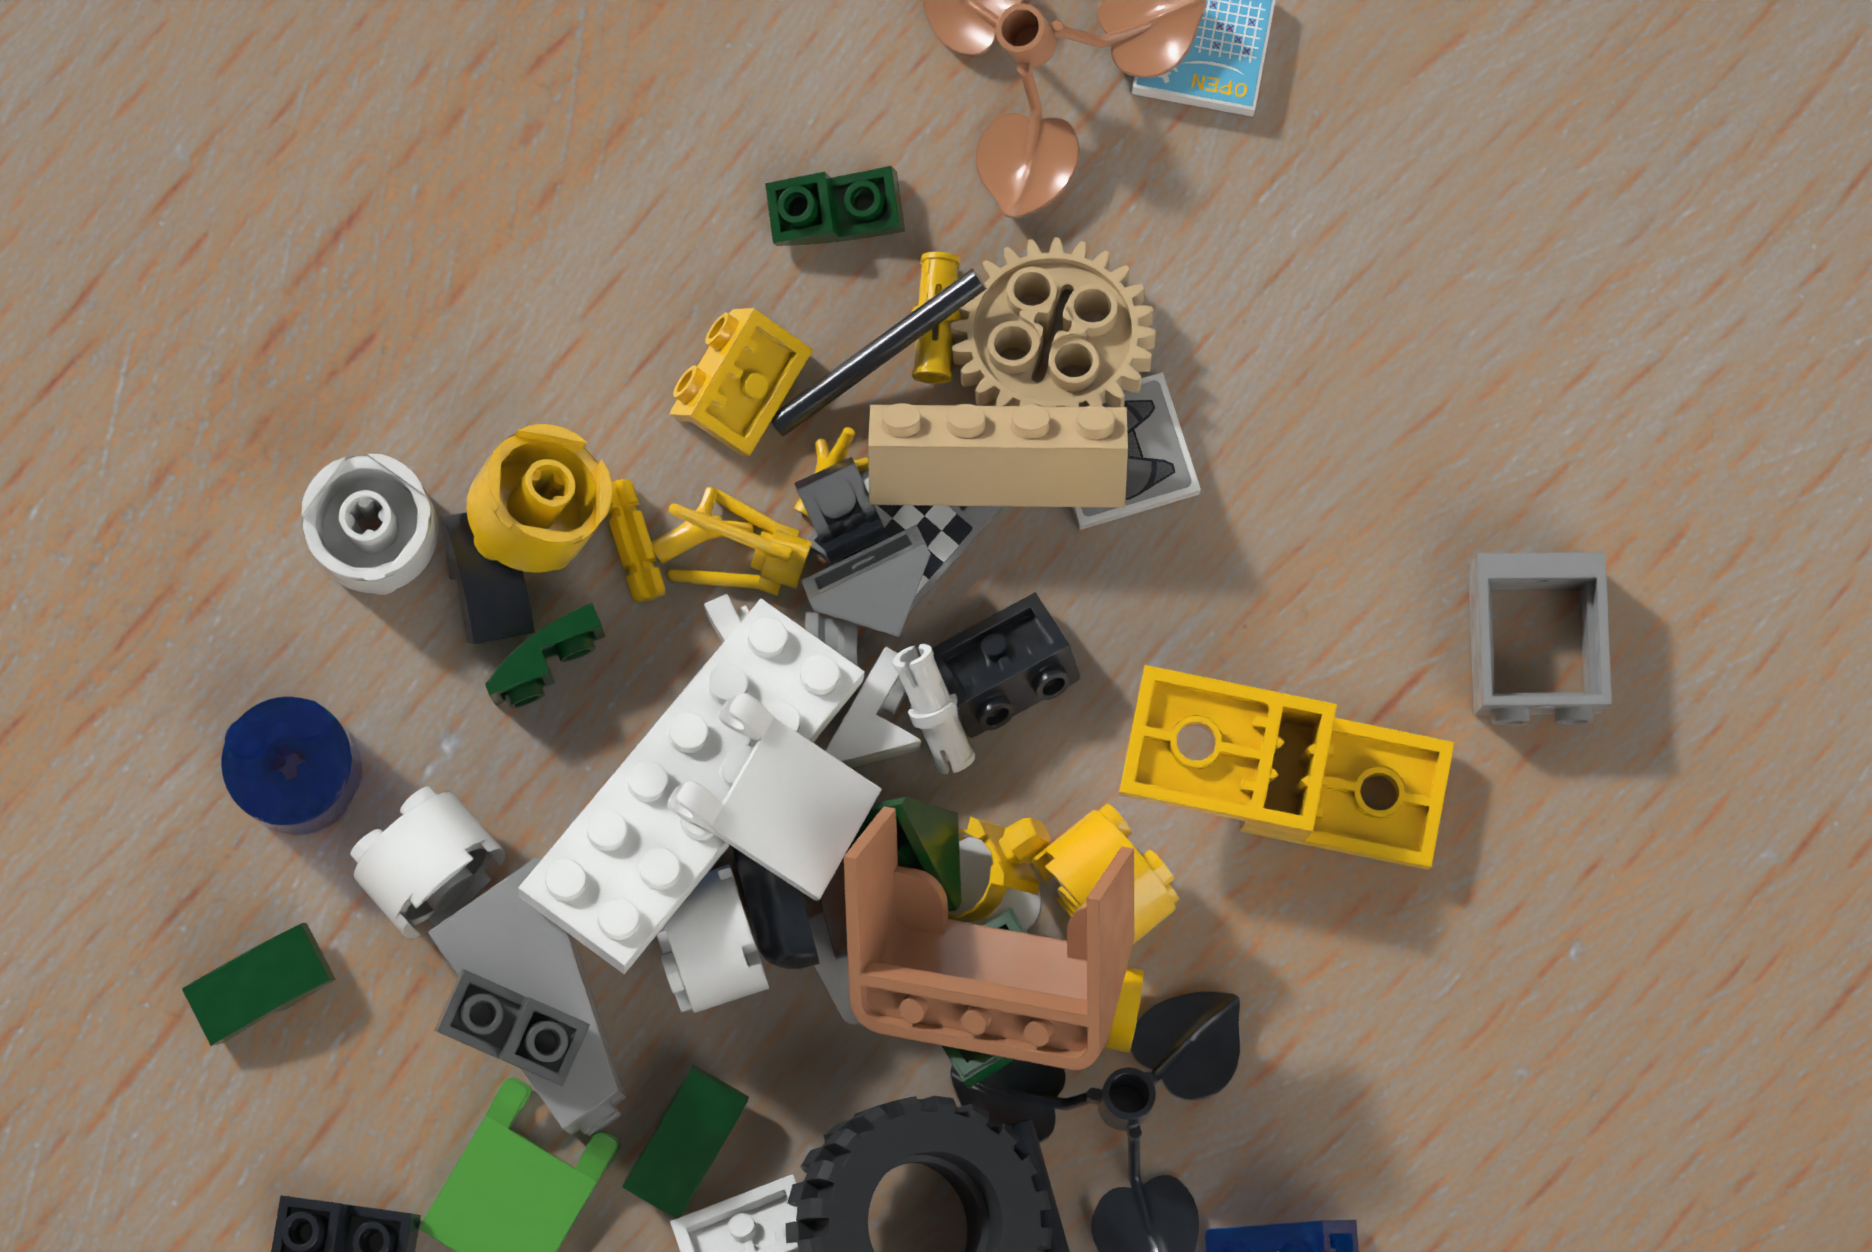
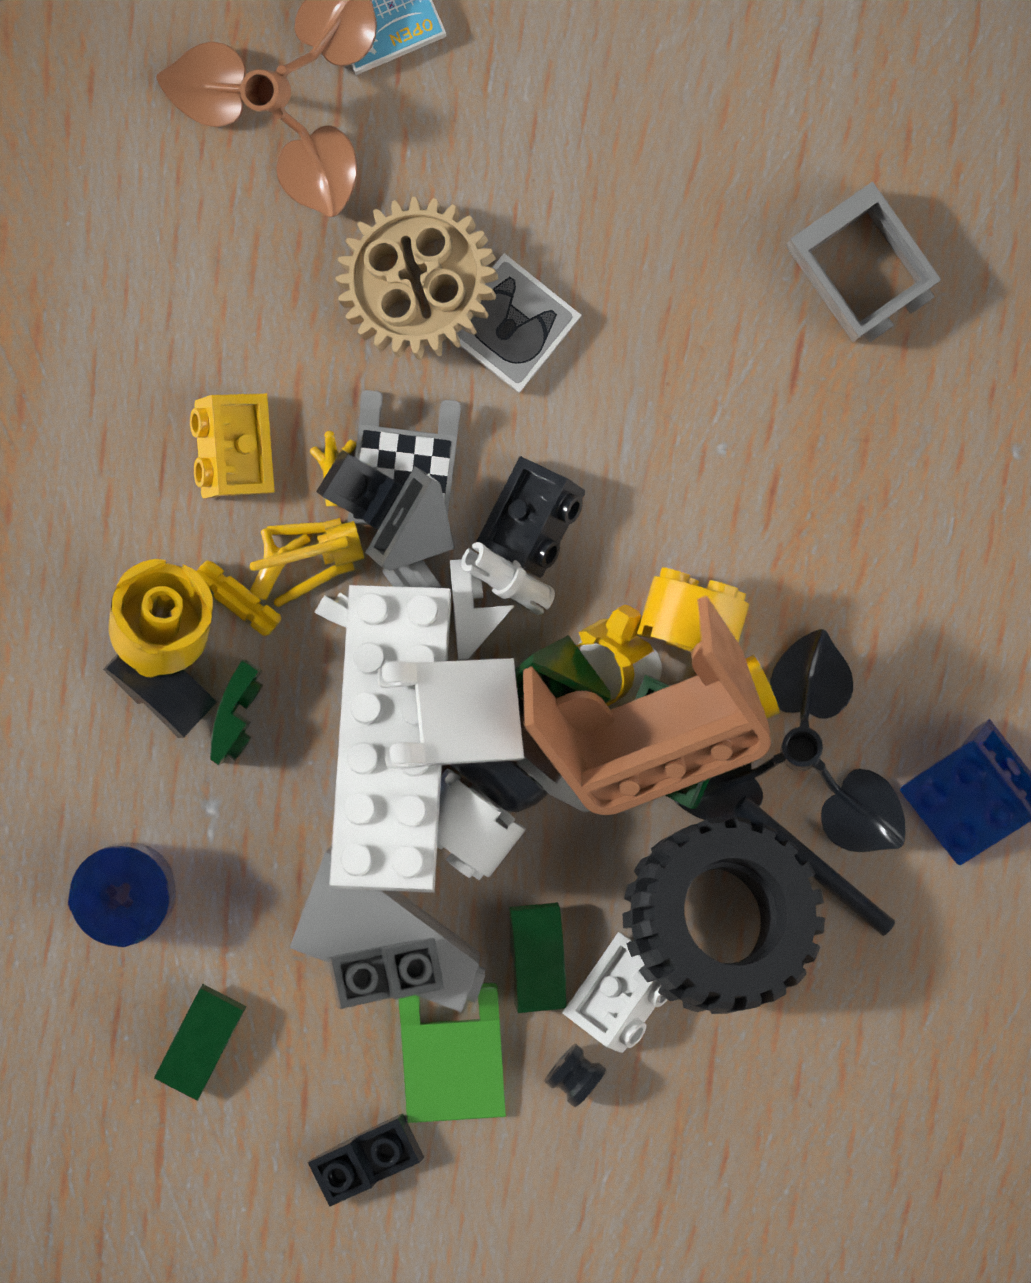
camera: 30 degrees left, 10 degrees up
(370, 488) = (42, 726): white brick -> none
(426, 861) = (252, 897): white brick -> none
(835, 208) = (214, 287): dark green slope -> none
(878, 352) = (311, 366): black bar -> none
(933, 357) = (315, 288): yellow pin -> none
(997, 455) = (438, 386): tan brick -> none
(1286, 767) = (759, 464): yellow bracket -> none

